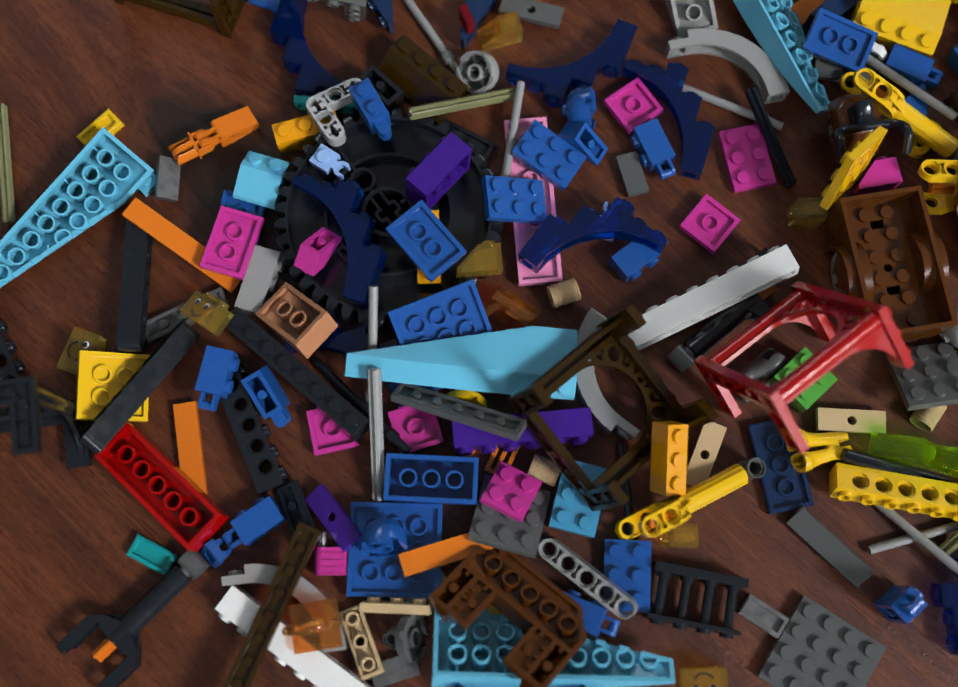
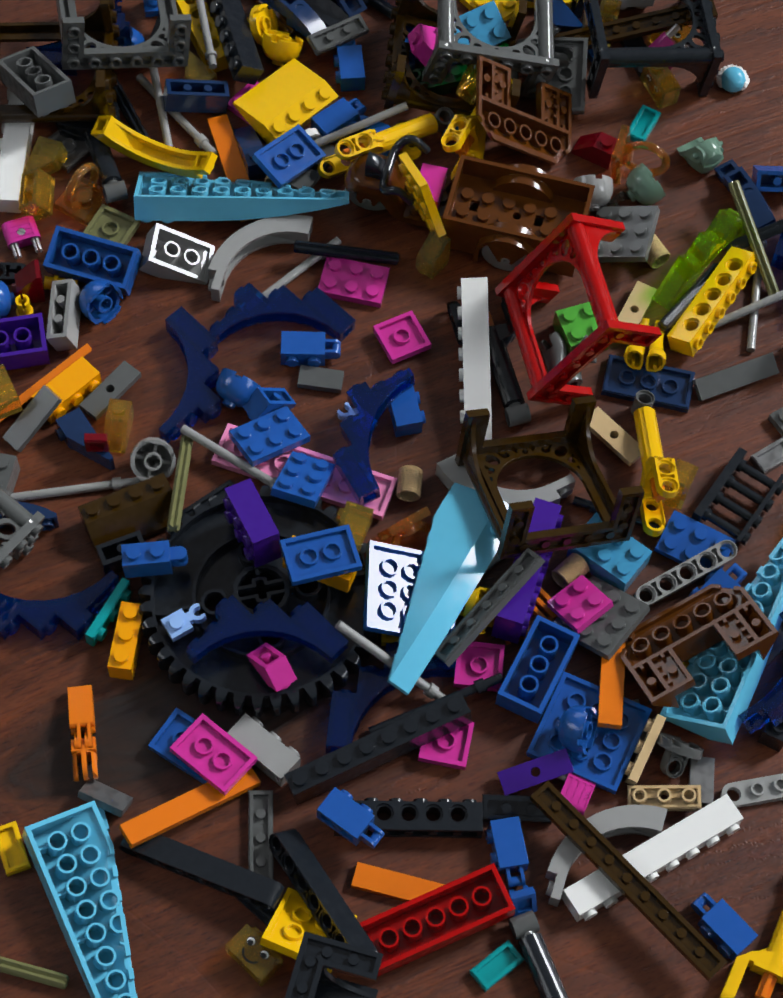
camera: 70 degrees left, 15 degrees down
(207, 312) = (278, 803): clear yellow brick -> none
(260, 179) = (159, 701): medium azure slope -> none
(268, 396) = (387, 783): blue brick -> none
(297, 319) = (326, 720): nougat slope -> none
(314, 626) = (635, 823): clear orange tile -> none
(327, 107) = (125, 604): light grey beam -> none
(376, 433) = (475, 694): light grey axle -> none
(633, 105) = (255, 347): dark pink plate -> none
(668, 458) = (610, 454): light orange brick -> none

